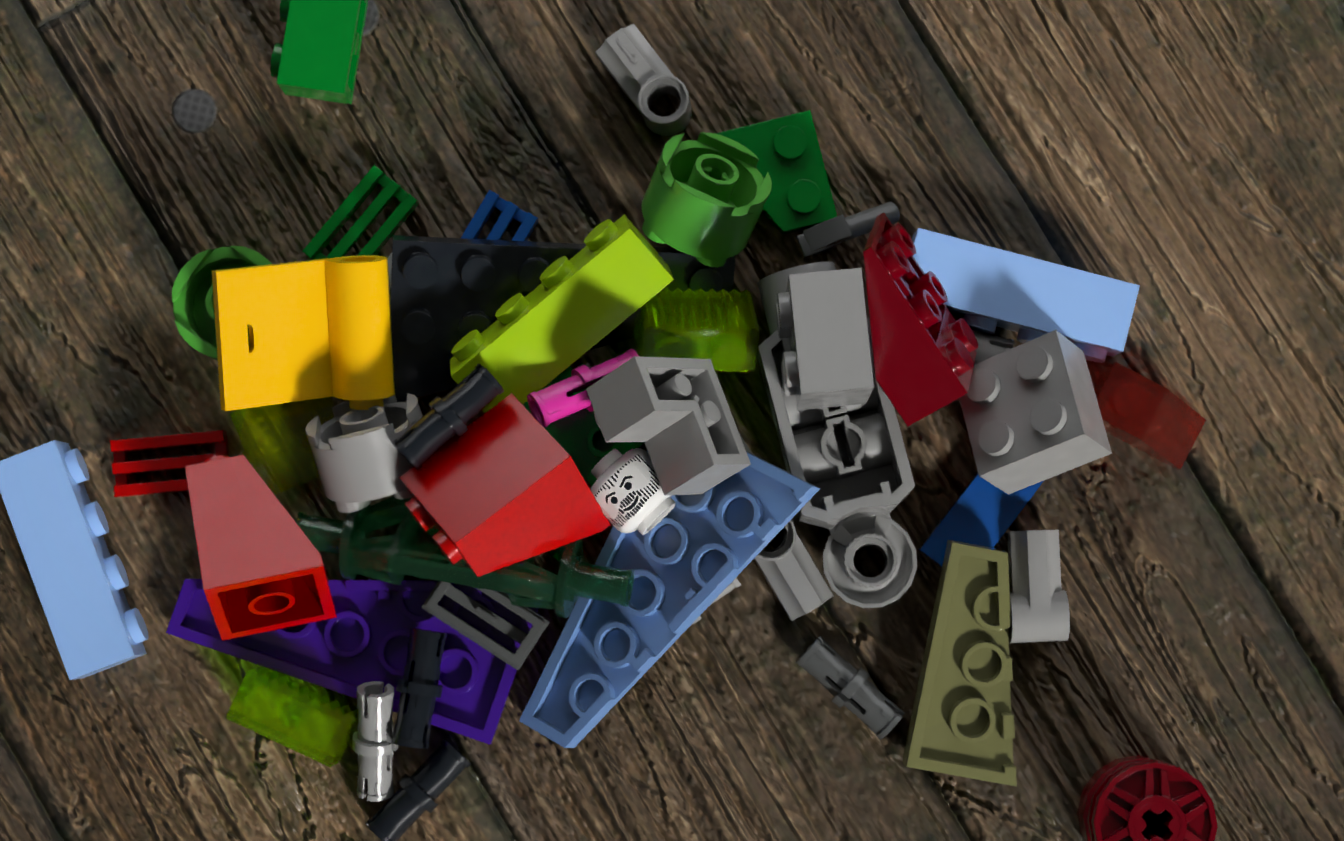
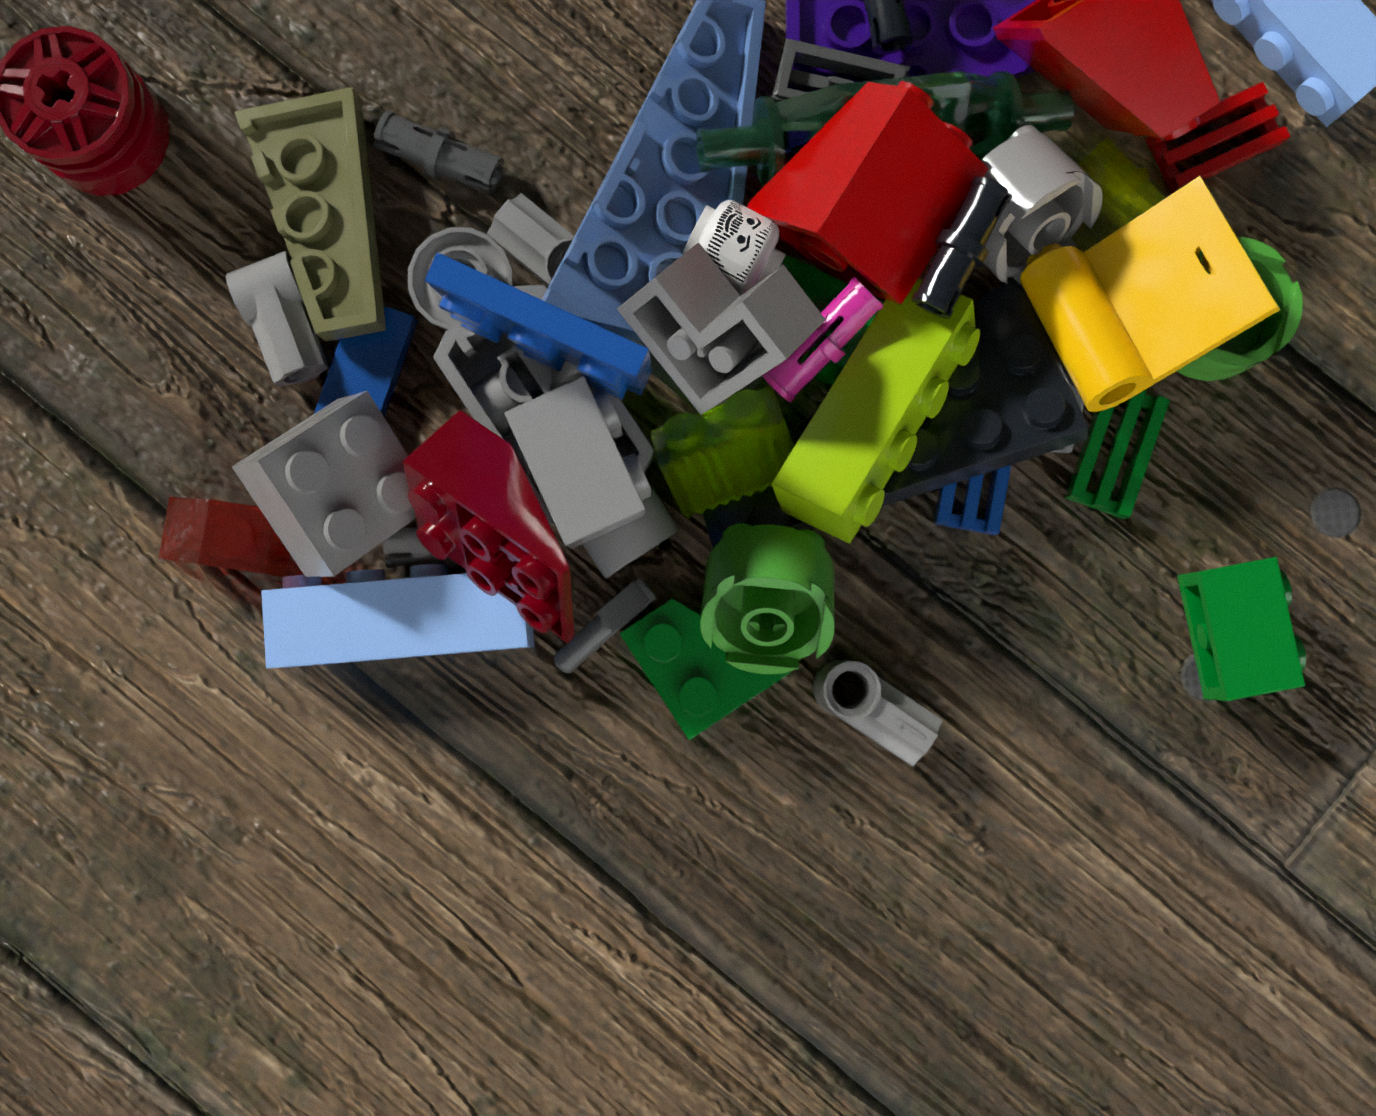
camera: 160 degrees right, 0 degrees up
(818, 445) = (539, 328): none -> blue plate

